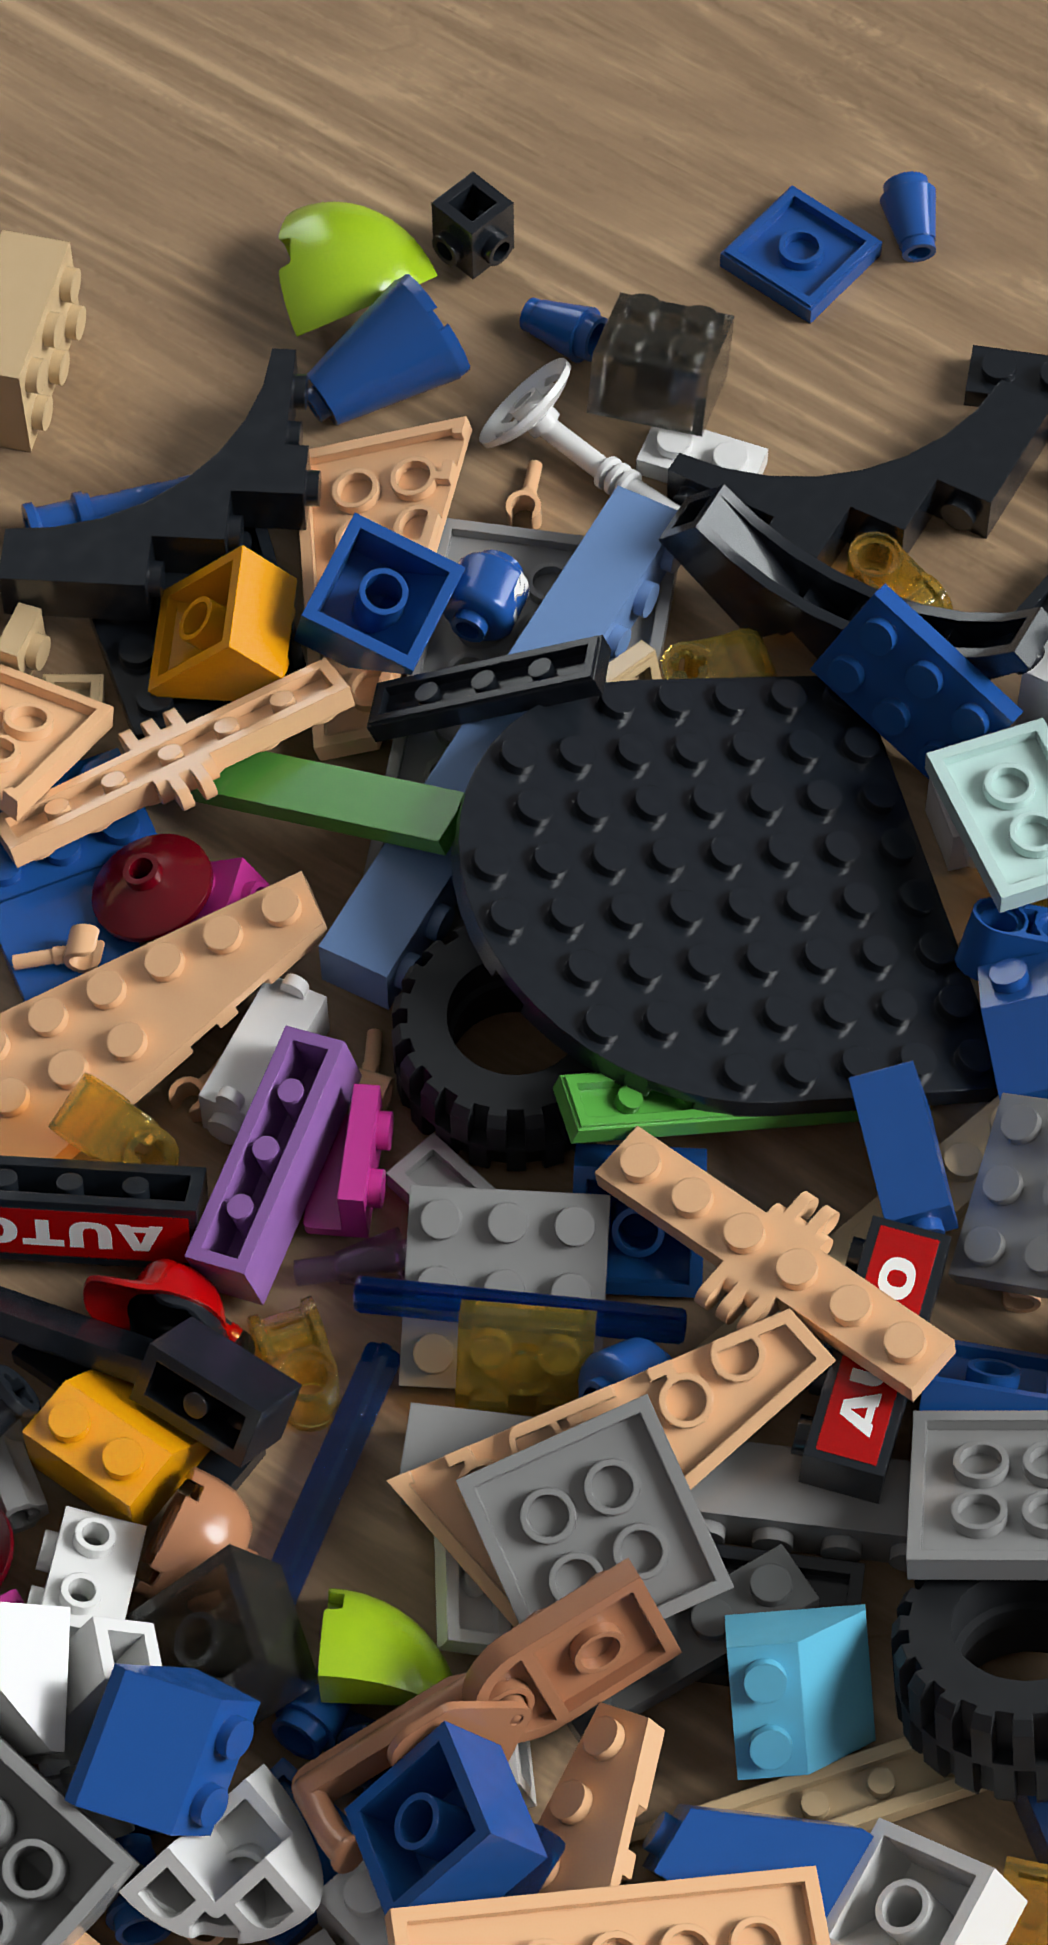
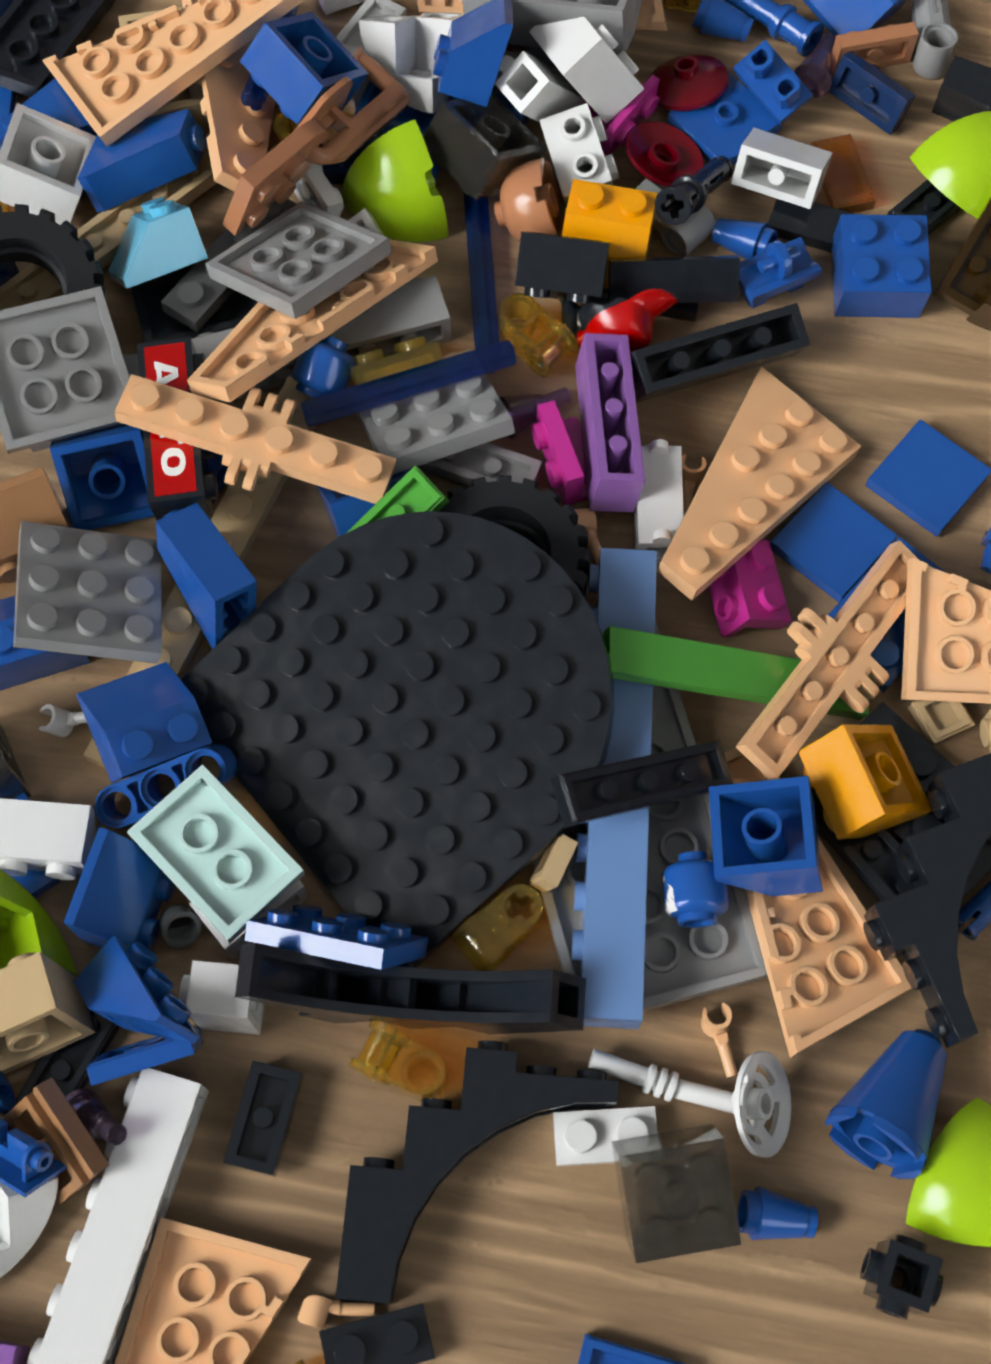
camera: 155 degrees right, 10 degrees up
(80, 954) = (817, 519): light nougat hand -> none
(110, 1126) = (710, 405): clear yellow piece -> none
(152, 887) = (786, 589): dark red dish -> none

